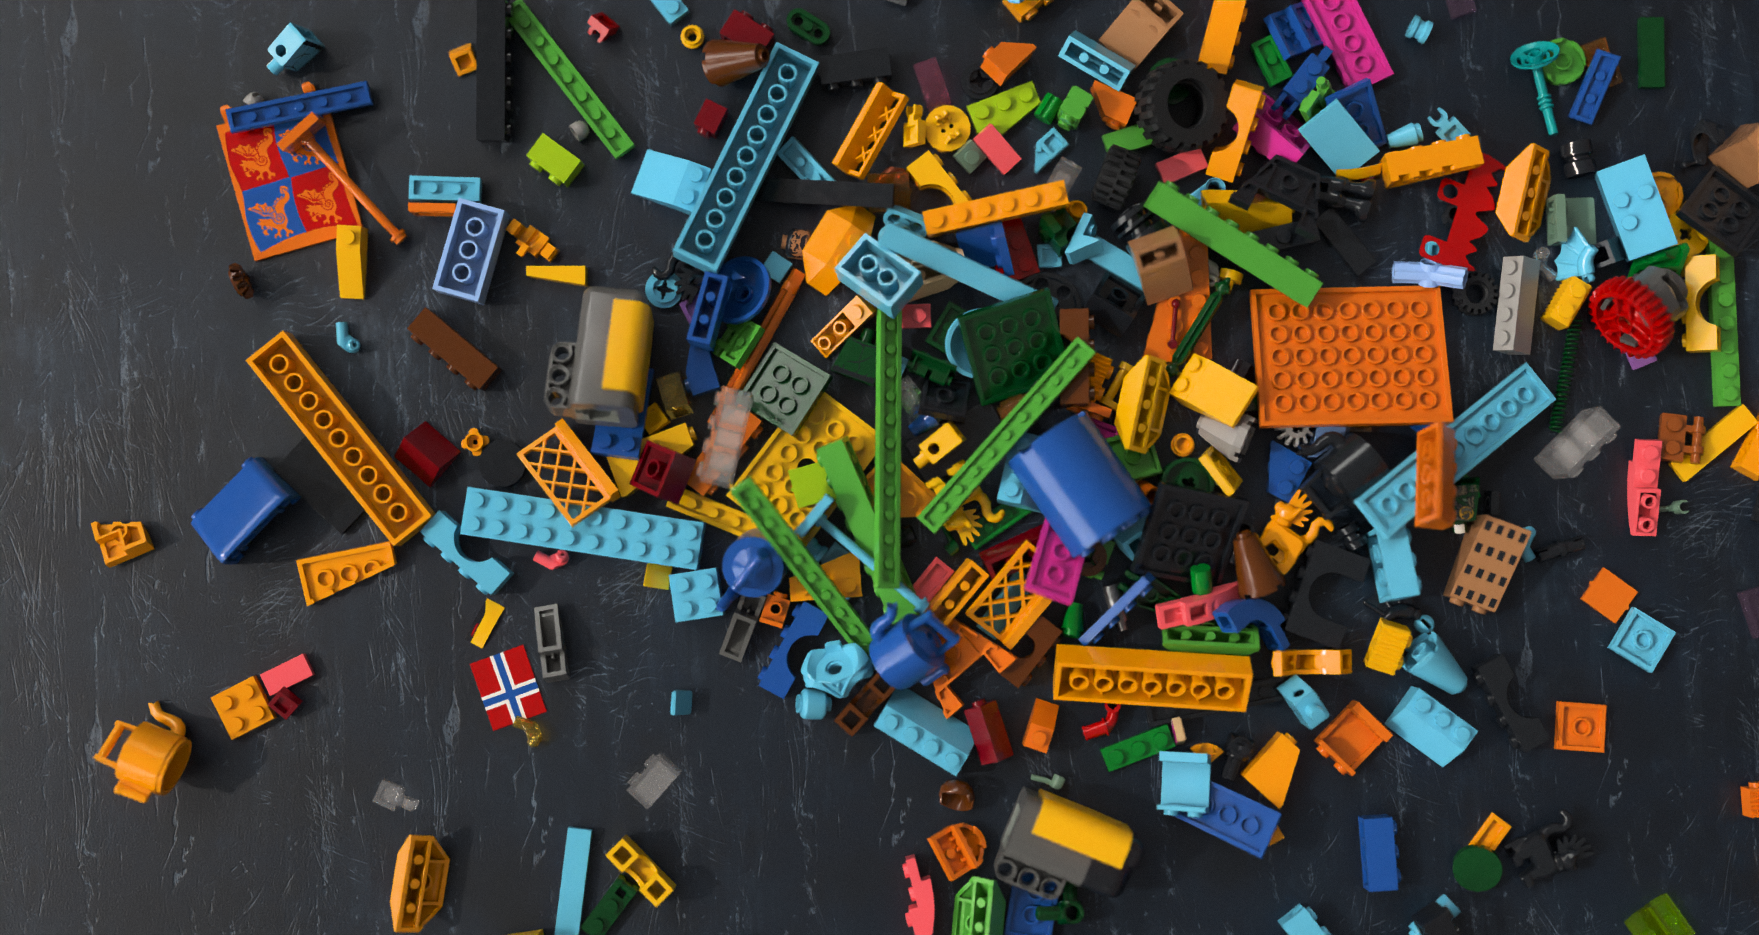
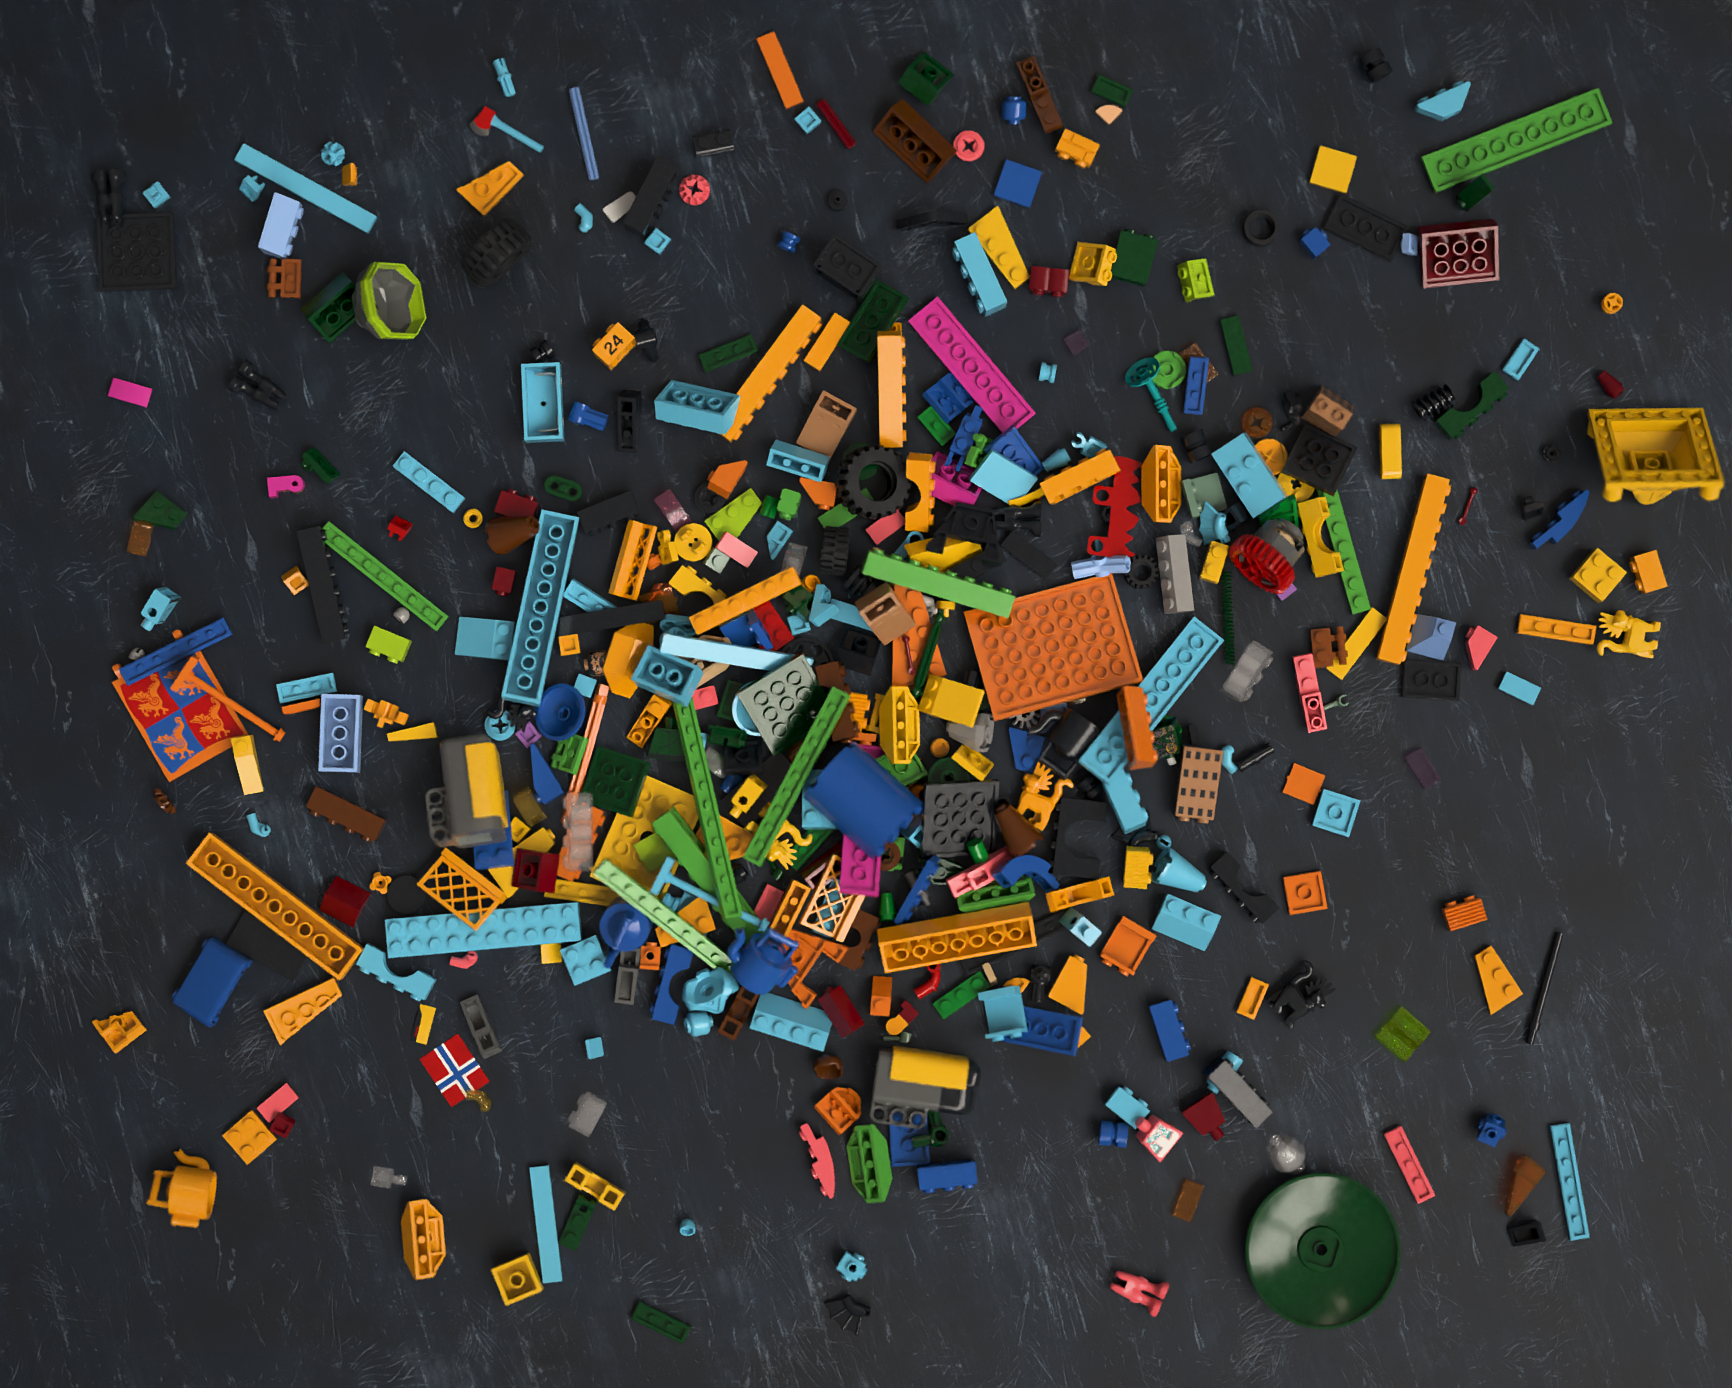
camera: 20 degrees left, 0 degrees up
(709, 311) = (541, 735): blue brick -> none
(770, 214) = (569, 645): none -> light orange plate
(894, 140) = (653, 561): none -> orange plate
(1054, 763) = (897, 1024): none -> leg
(1477, 868) = (1248, 1023): dark green tile -> none
(1647, 142) = (1255, 431): none -> clear orange gear

